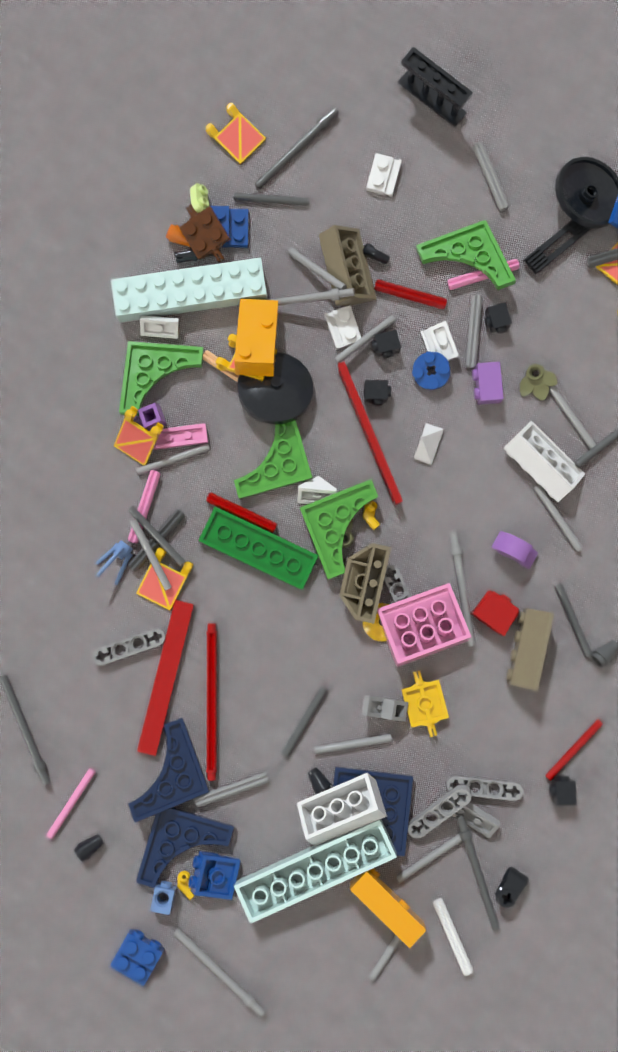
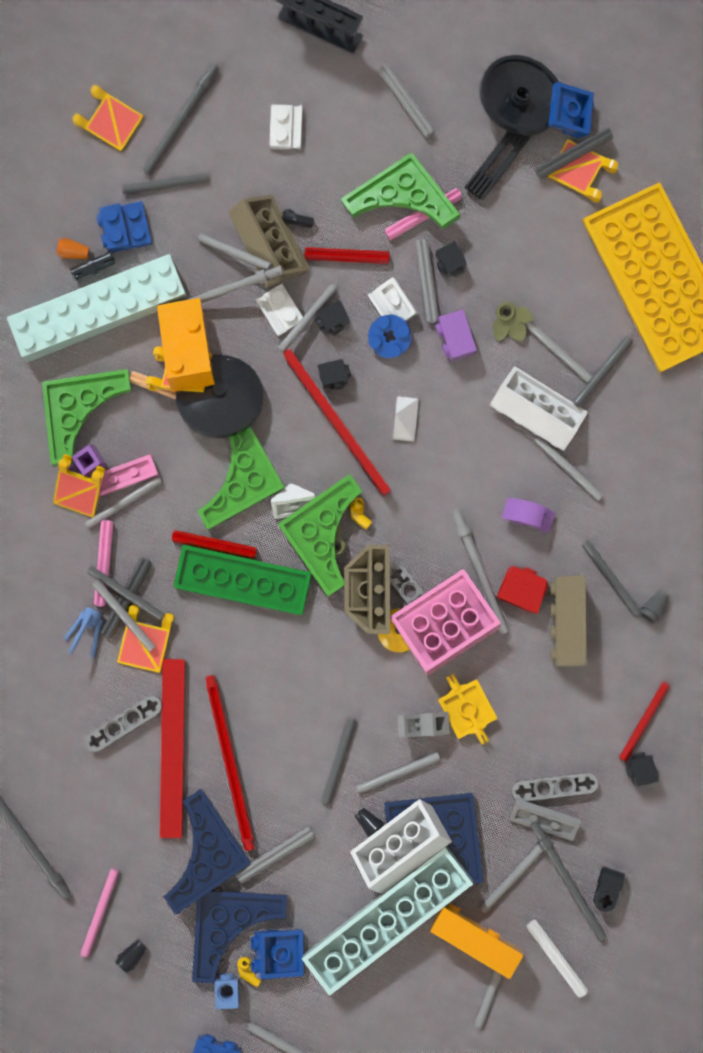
camera: 10 degrees left, 0 degrees up
(159, 326) = (73, 357): white plate -> none
(199, 197) = (84, 202): yellowish green plate -> none
(205, 233) = (100, 240): reddish brown plate -> none
(437, 809) = (510, 824): light grey beam -> none

